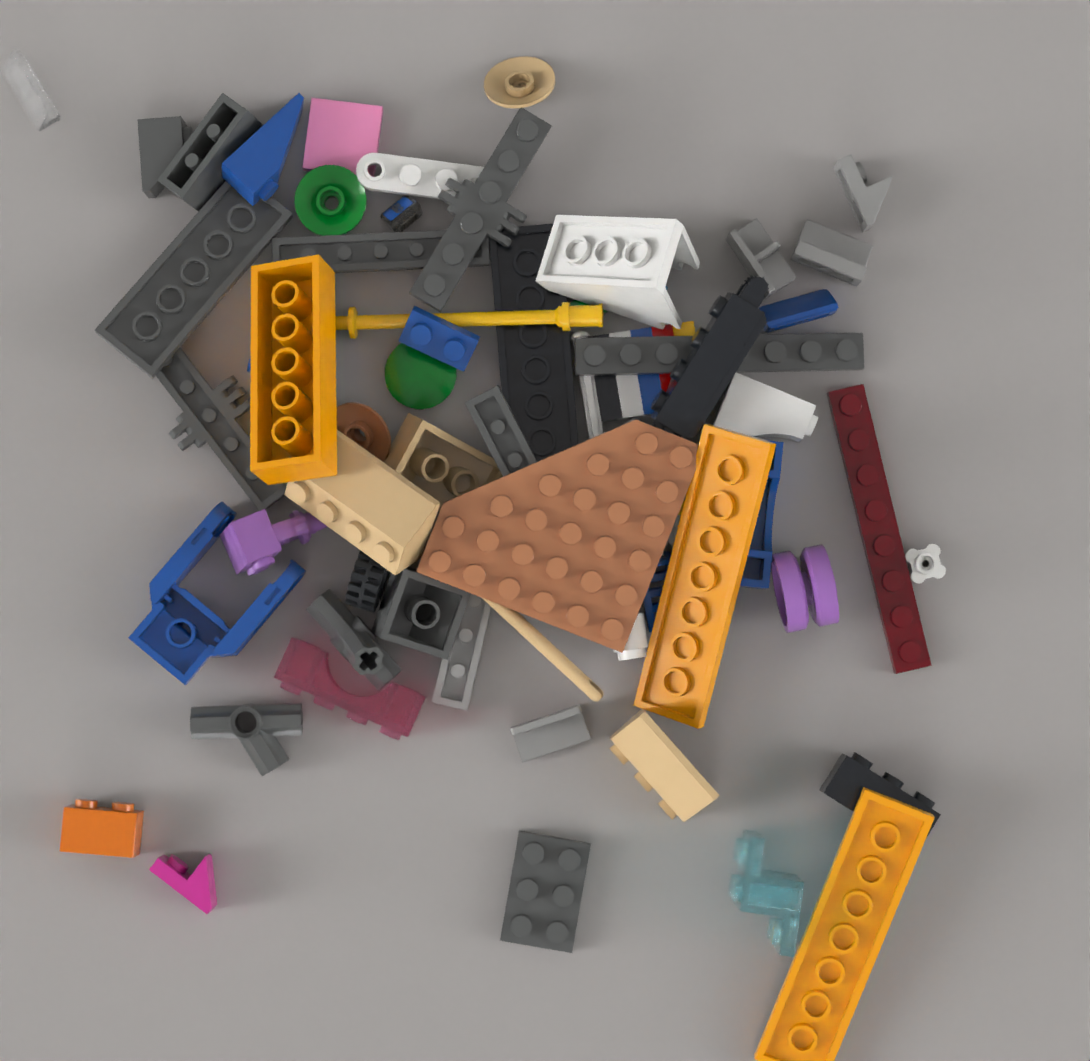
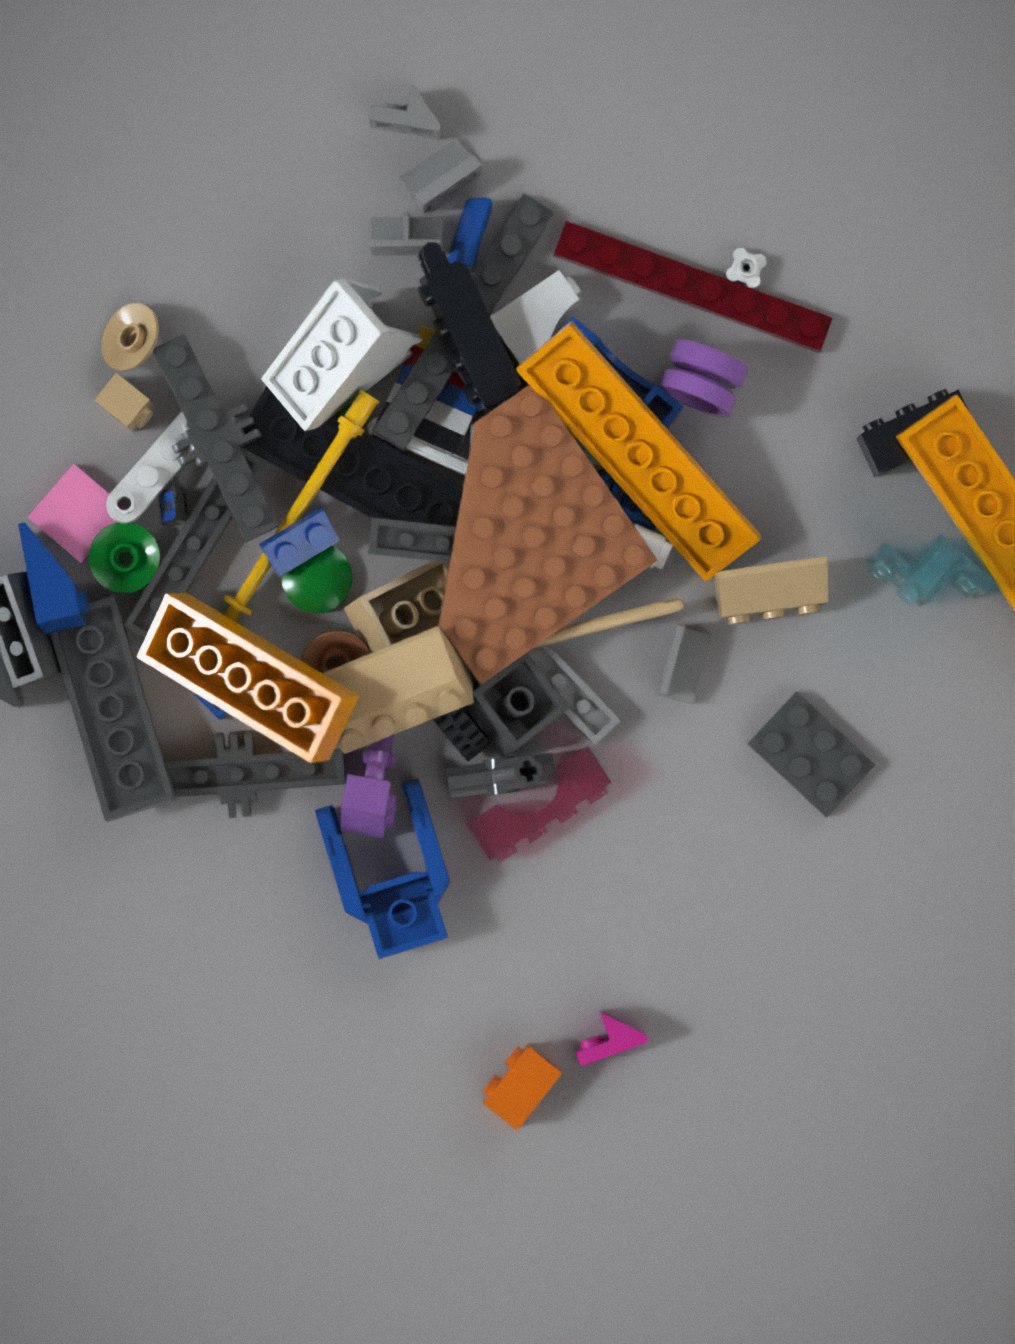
camera: 55 degrees left, 0 degrees up
(260, 742) = (534, 908): dark grey piece -> none
(461, 115) = (125, 403): none -> tan brick

